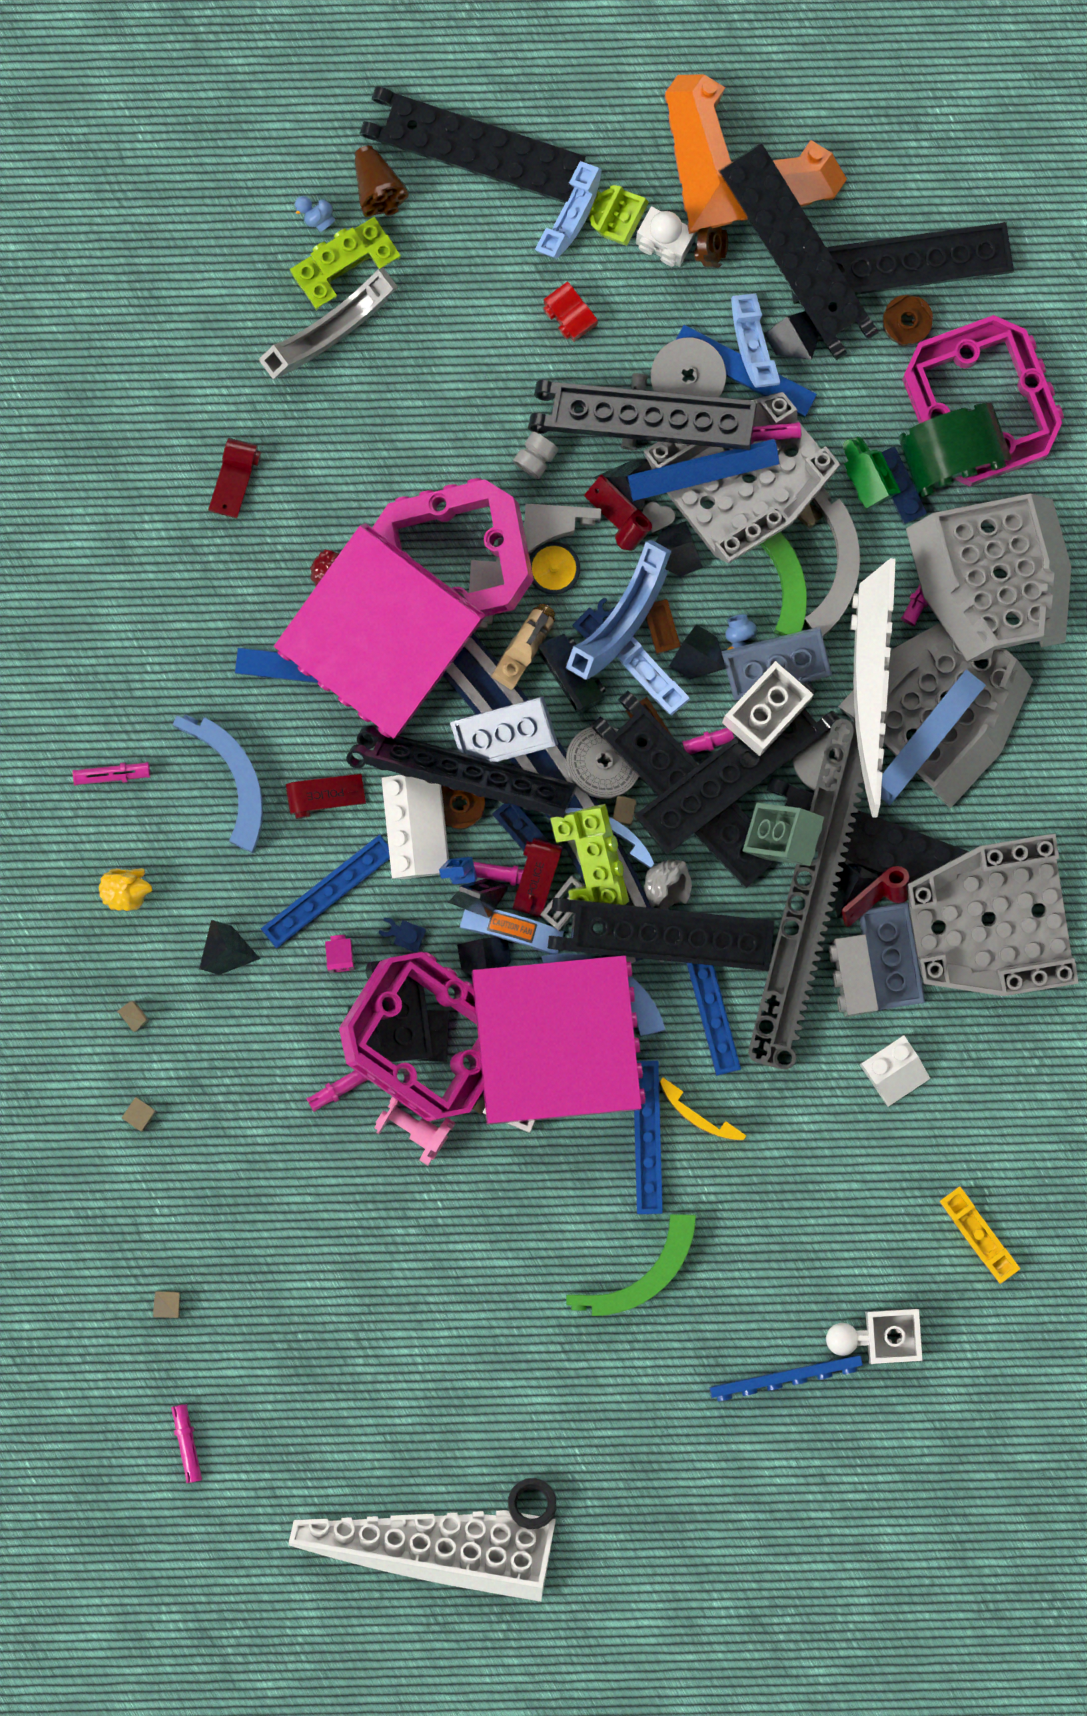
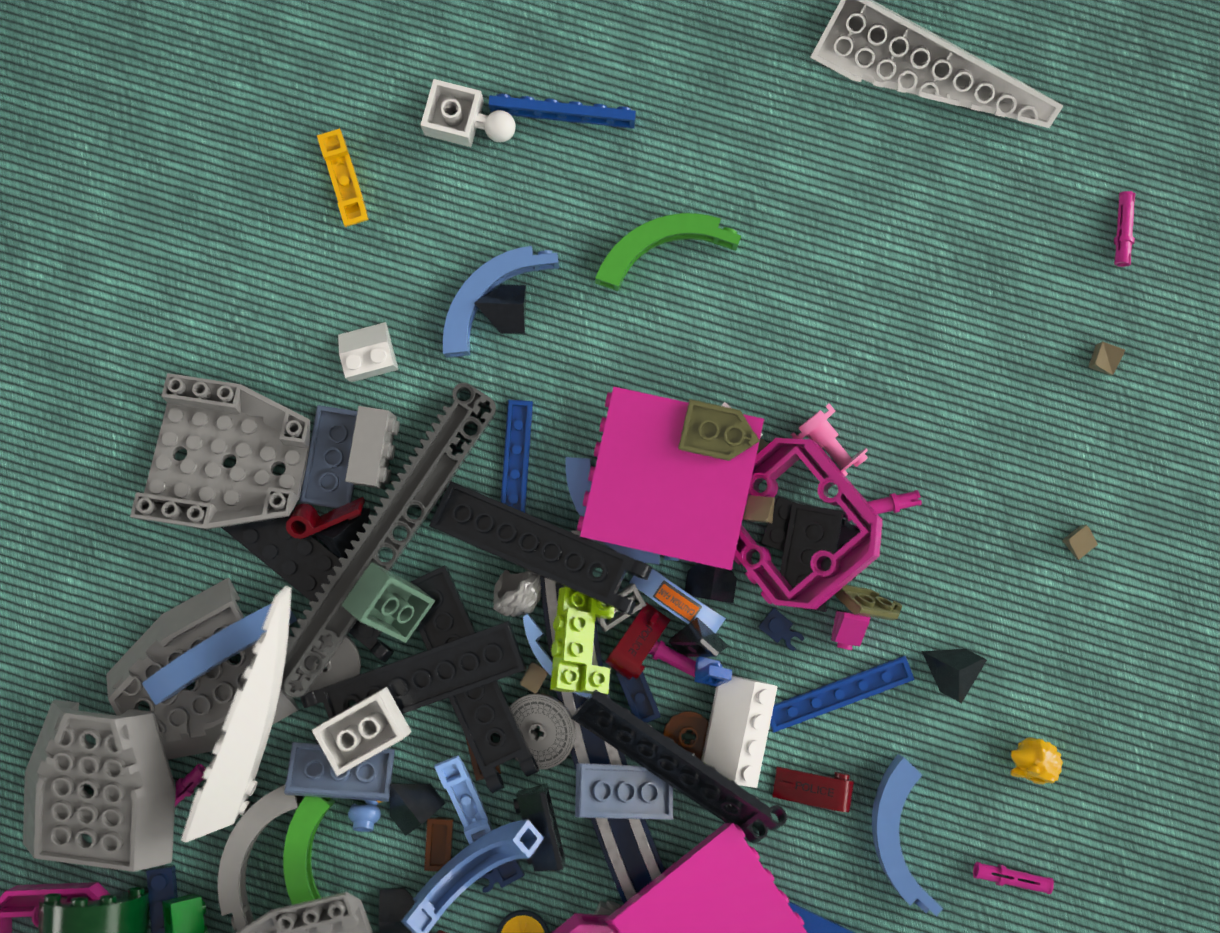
camera: 160 degrees left, 0 degrees up
(133, 1016) = (1058, 637): dark tan slope -> none
(330, 985) = (868, 603): none -> olive tile
(464, 1037) = (759, 509): none -> dark tan slope
(518, 1489) = (846, 67): black tyre -> none
(524, 646) = (576, 871): tan plate -> none
(530, 1095) = (715, 431): none -> olive tile
(648, 1143) = (616, 359): blue plate -> none
(673, 1094) = (543, 347): yellow slope -> none
(708, 741) = (432, 717): dark pink pin -> none
(774, 1159) = (505, 308): none -> black slope
(810, 516) = (260, 905): dark tan slope -> none
(811, 1162) = (482, 281): none -> medium blue arch

